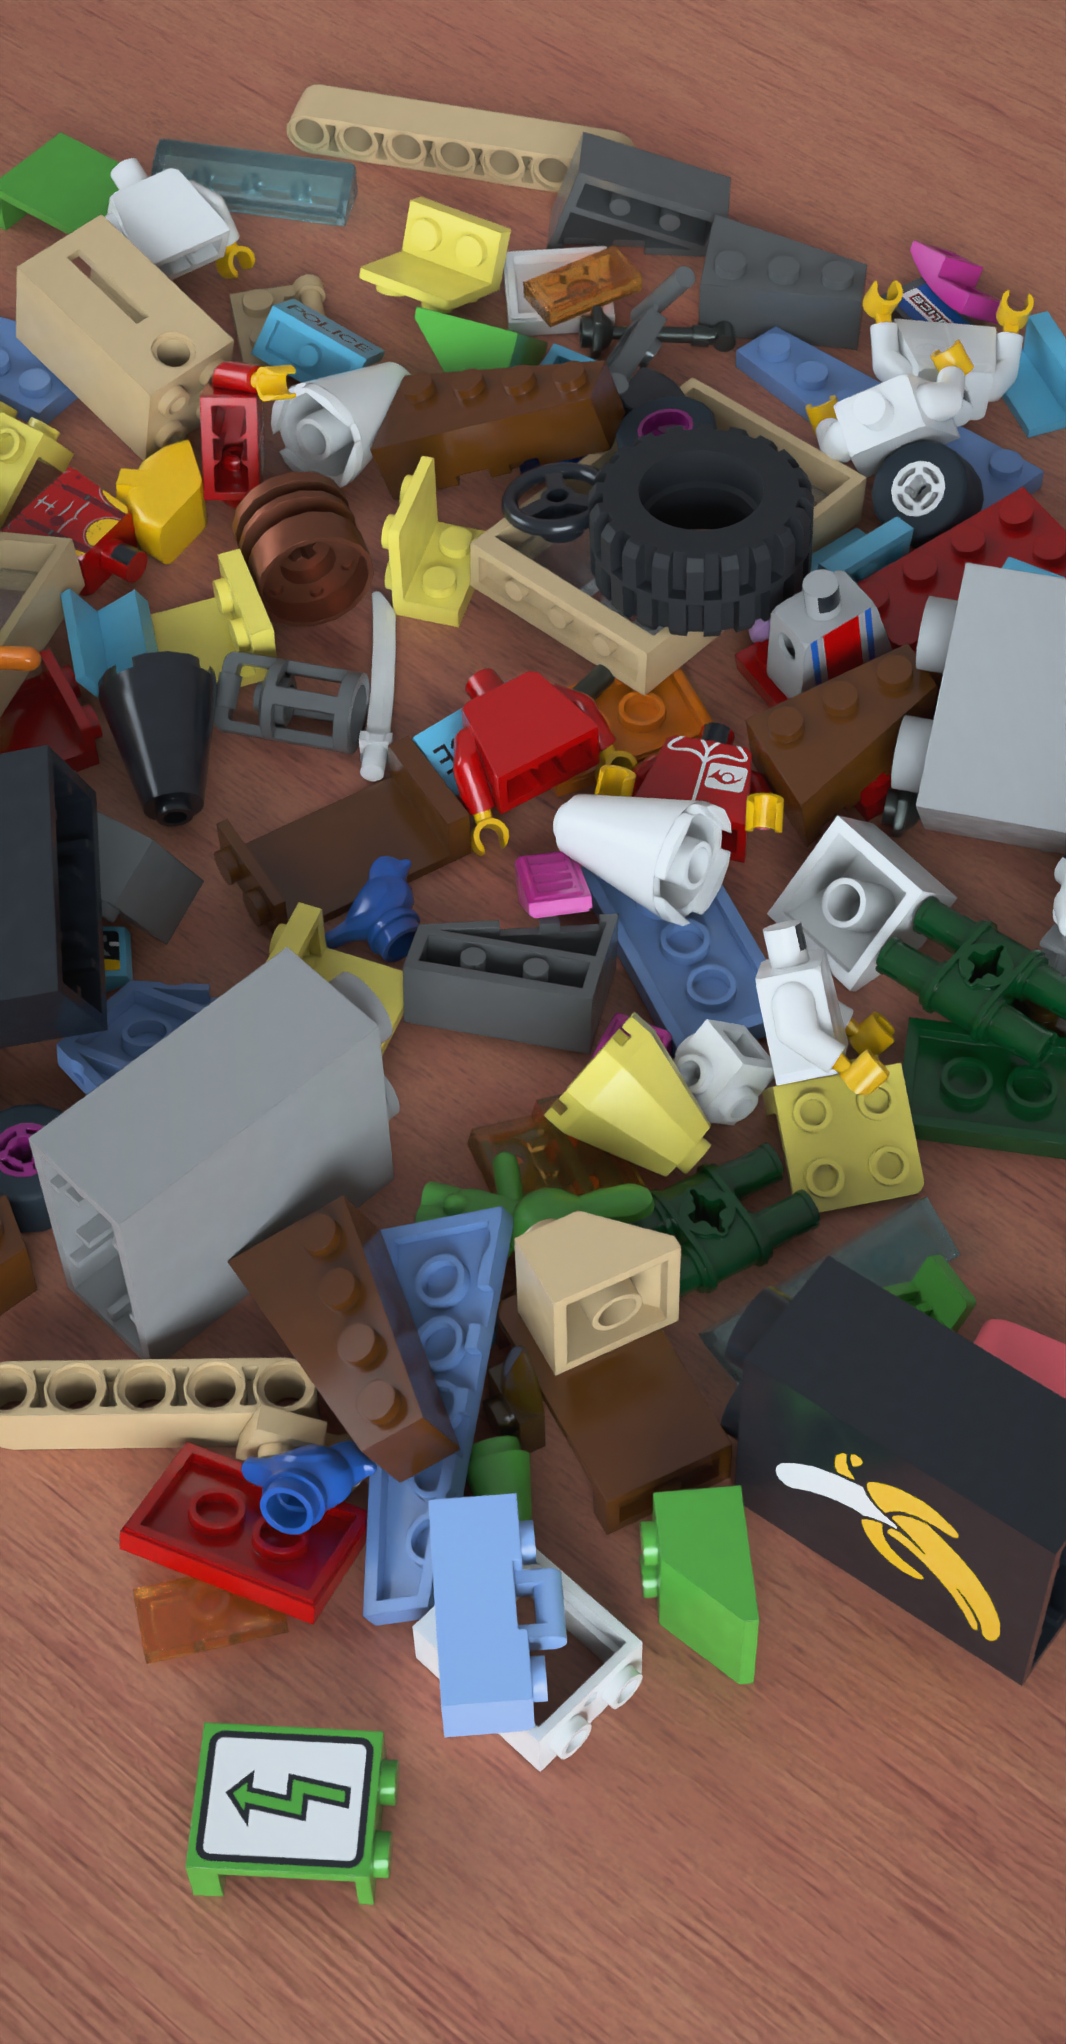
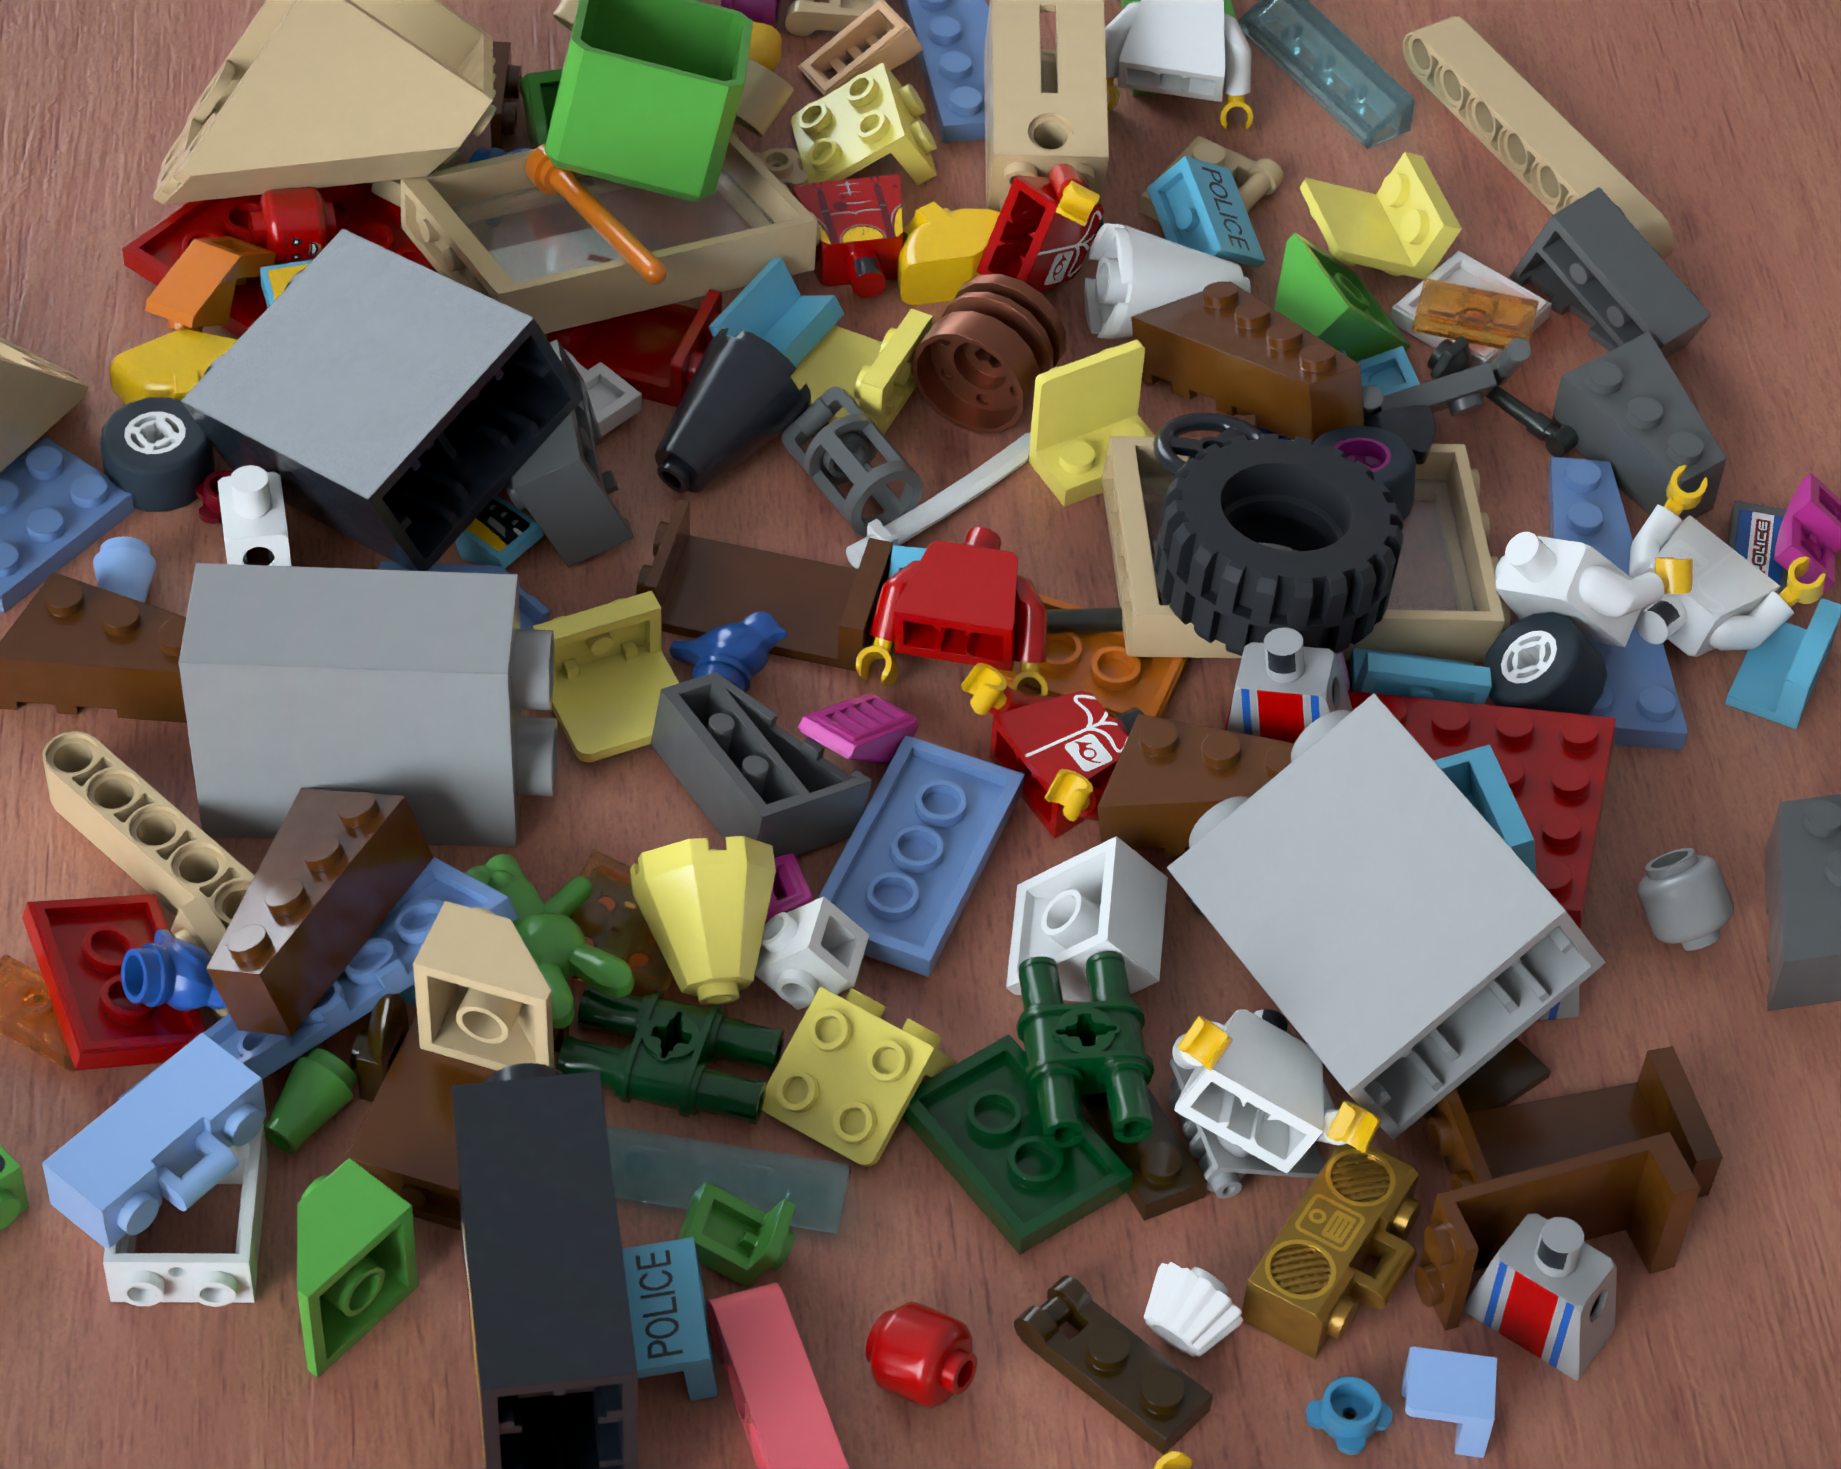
camera: 40 degrees right, 5 degrees down
(649, 849) = (949, 758): white cone -> none
(808, 1023) = (904, 957): white torso -> none

